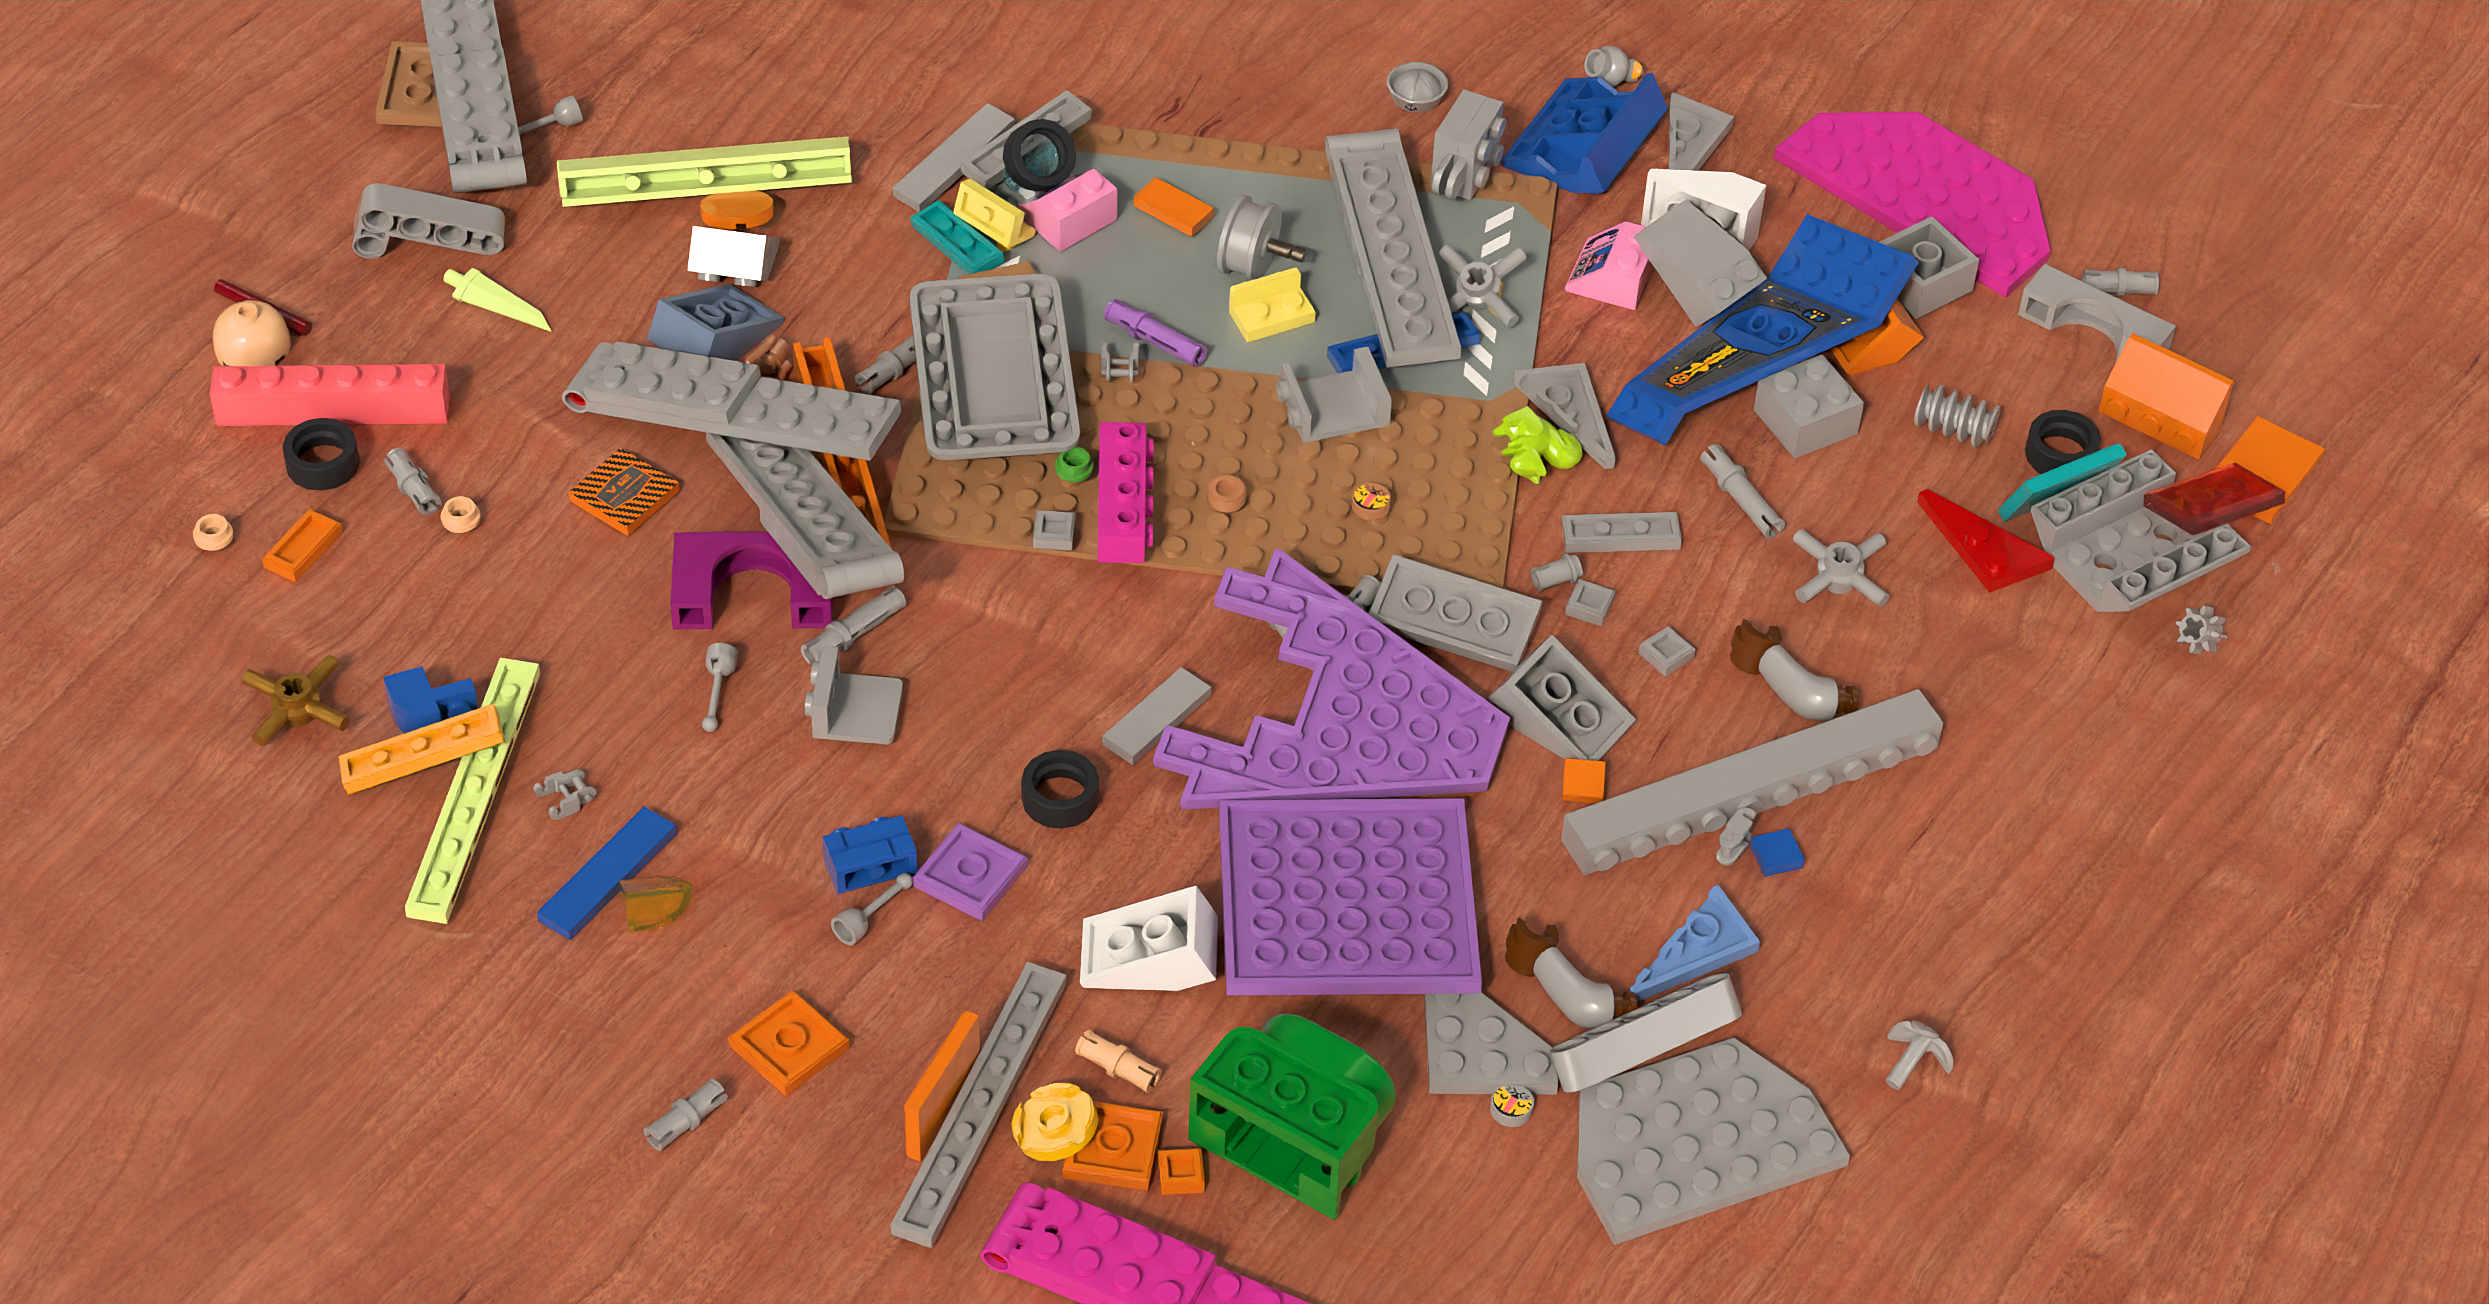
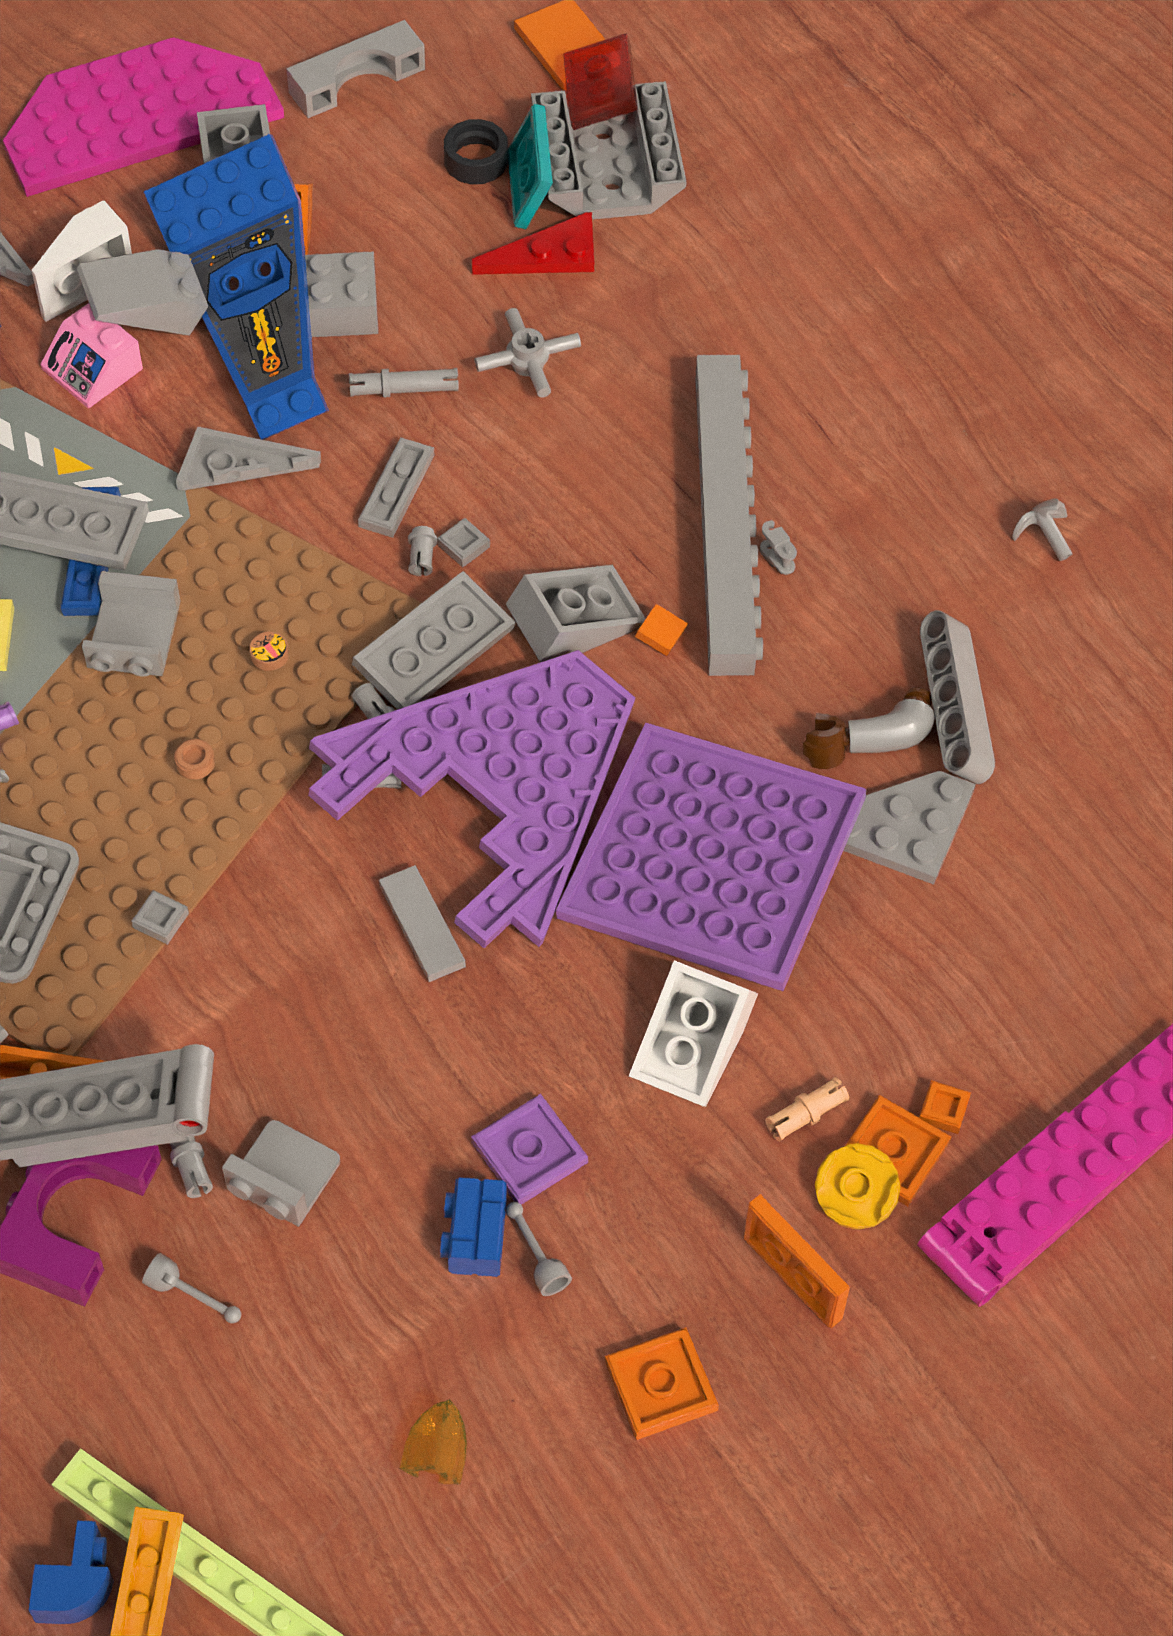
camera: 65 degrees left, 10 degrees up
(561, 783) = (239, 1483): light grey piece -> none
(599, 878) = (377, 1478): blue tile -> none
(685, 1114) = (712, 1507): light grey pin -> none
(978, 1105) = (869, 1295): light grey plate -> none
(1064, 765) = (474, 1006): black tyre -> none
(1074, 465) = (93, 858): bright green plate -> none
(1122, 492) = (153, 839): dark pink brick -> none
(1291, 1107) = (954, 980): green brick -> none
(1481, 284) = (62, 449): light grey bar -> none
(1511, 1105) = (977, 827): tile -> none
(1535, 438) = (272, 502): lime animal -> none
(1666, 651) = (546, 512): light grey tile -> none
(1697, 1138) = (1065, 712): light grey plate -> none
(1706, 942) = (875, 619): medium blue wing -> none
(1776, 852) = (801, 528): blue tile -> none
(1800, 690) = (639, 438): light grey piece -> none
(1956, 416) = (410, 199): light grey piece -> none
(2122, 281) = (320, 35): light grey pin -> none
(2166, 396) = (474, 61): orange slope -> none
(2192, 625) = (719, 163): light grey gear -> none

